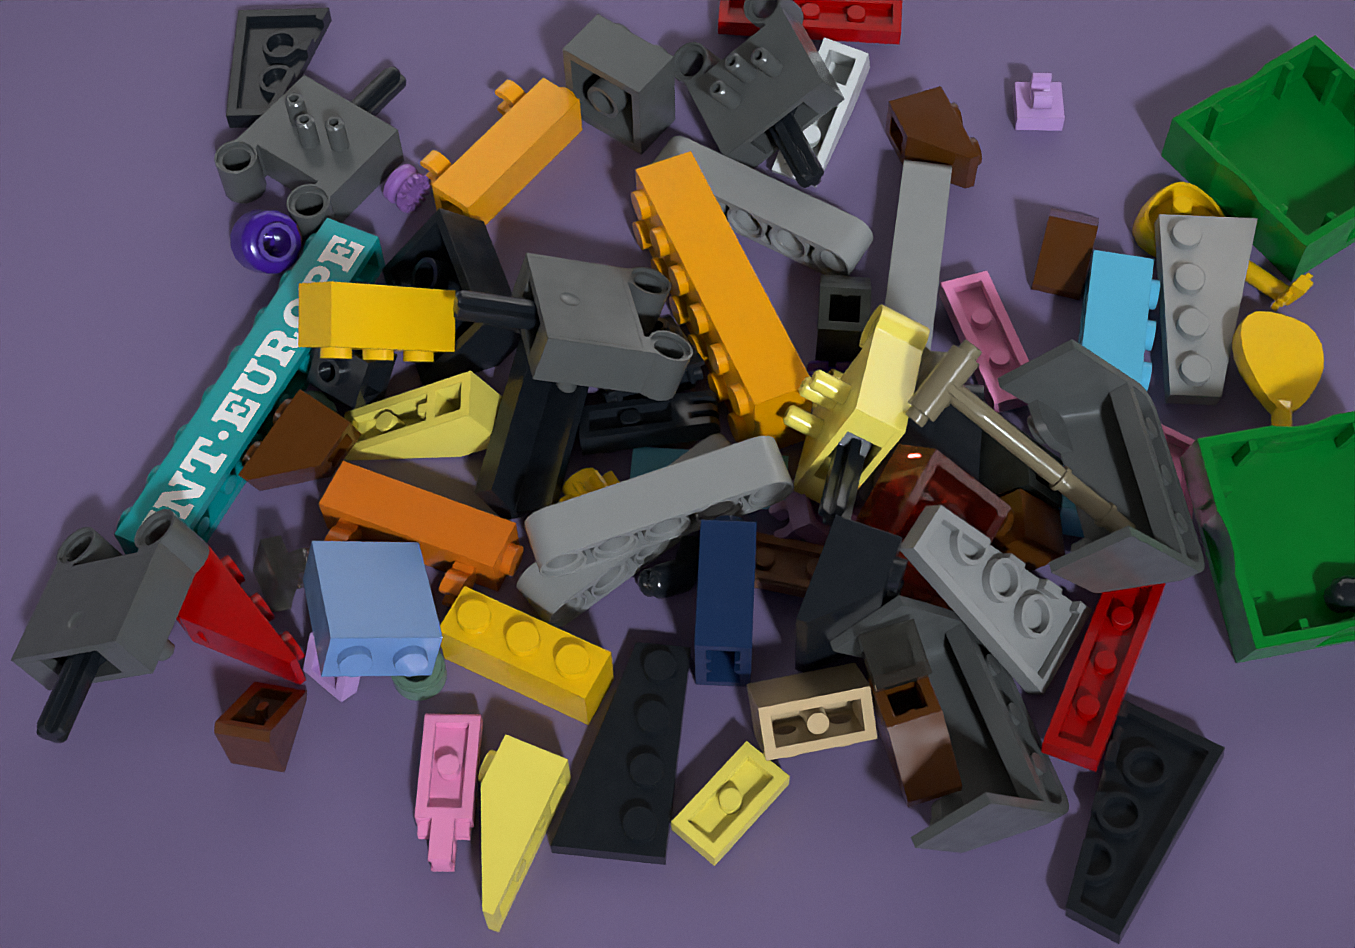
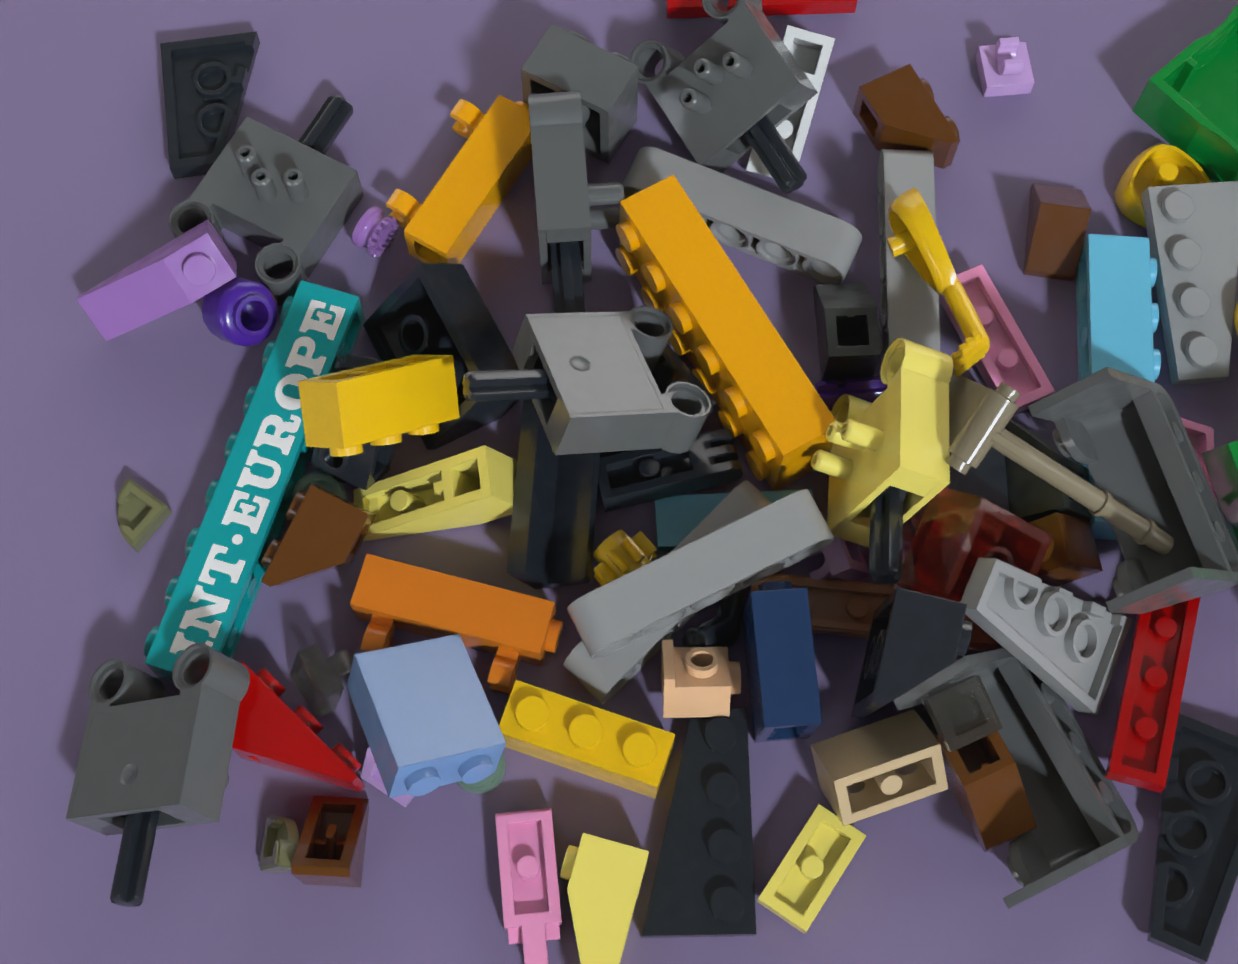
camera: 10 degrees left, 10 degrees up
(139, 412) = (139, 514): none -> olive tile
(194, 208) = (160, 282): none -> medium lavender slope
(211, 709) = (278, 844): none -> olive tile
(586, 162) = (566, 197): none -> dark grey piece
(644, 613) = (697, 681): none -> light nougat brick
(920, 234) = (921, 243): none -> yellow piece

